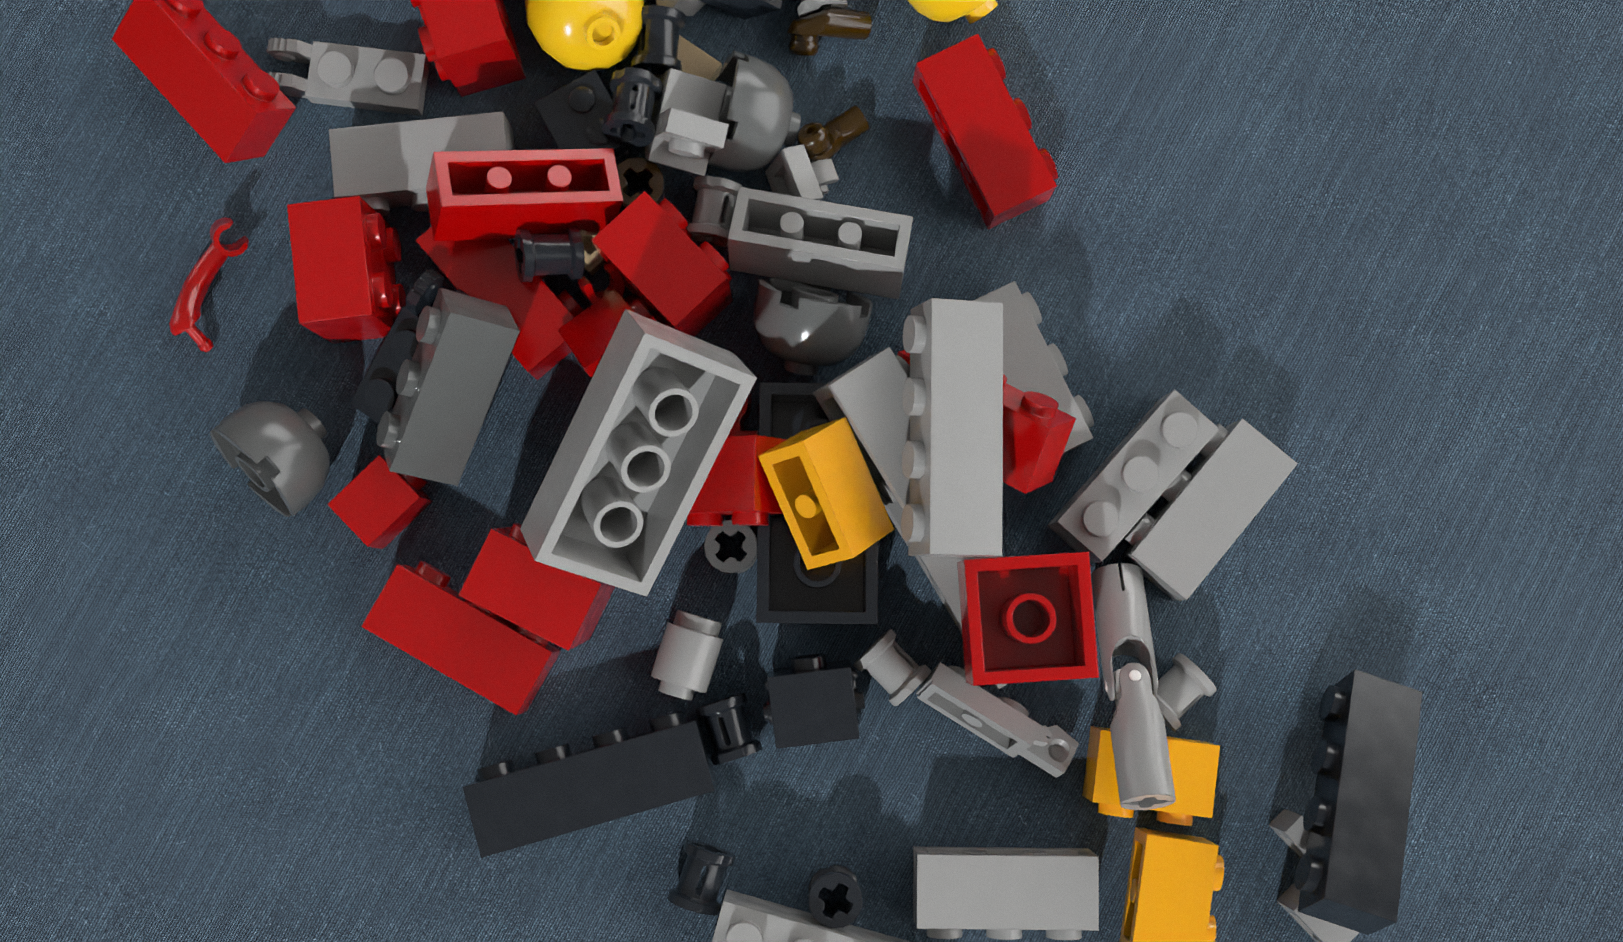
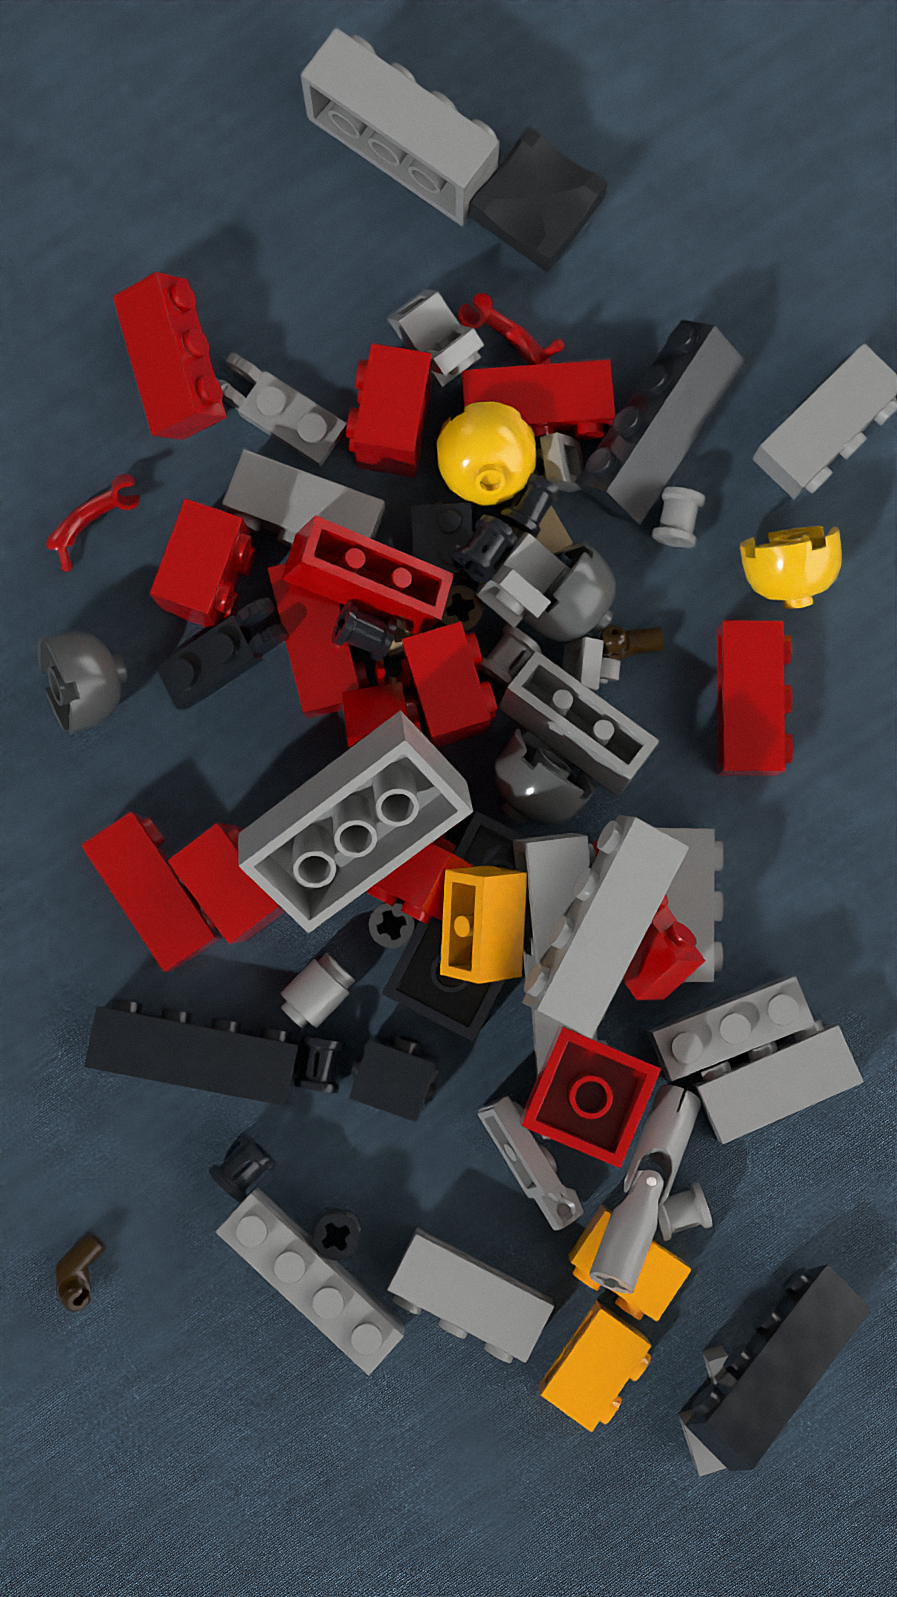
camera: 30 degrees right, 0 degrees up
(380, 503) = (142, 755): red brick -> none
(447, 386) = (236, 695): dark grey brick -> none
(827, 23) = (671, 552): dark brown arm -> none
(892, 667) = (469, 1080): light grey bush -> none

